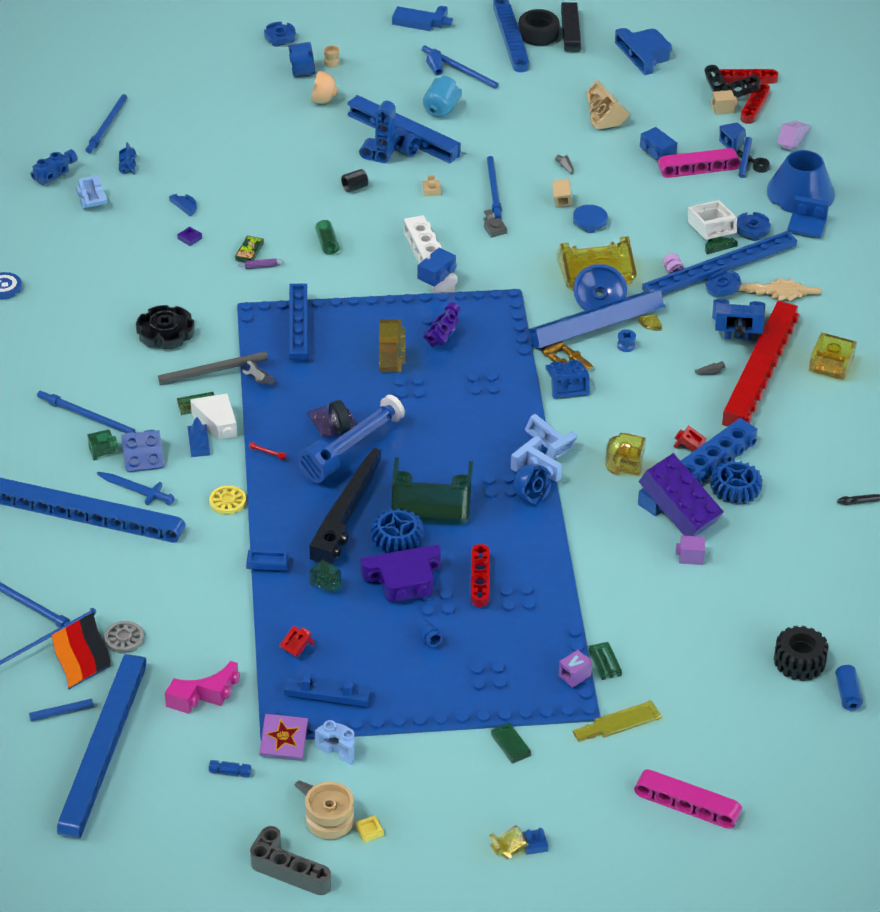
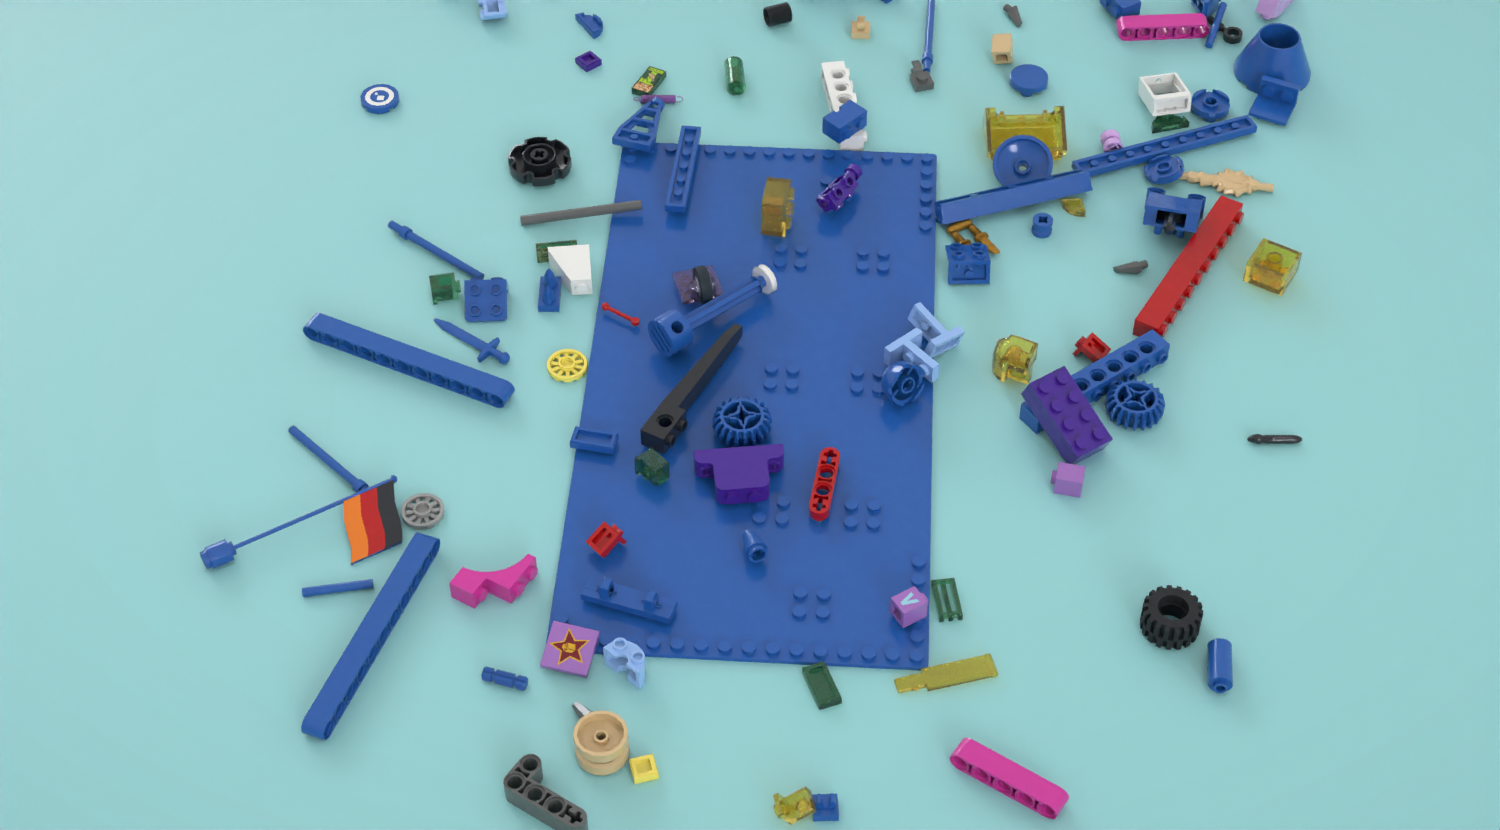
camera: 10 degrees right, 5 degrees up
(257, 301) = (640, 140): none -> blue plate
(260, 375) = (630, 227): dark grey plate -> none
(433, 501) = (787, 392): clear green windscreen -> none

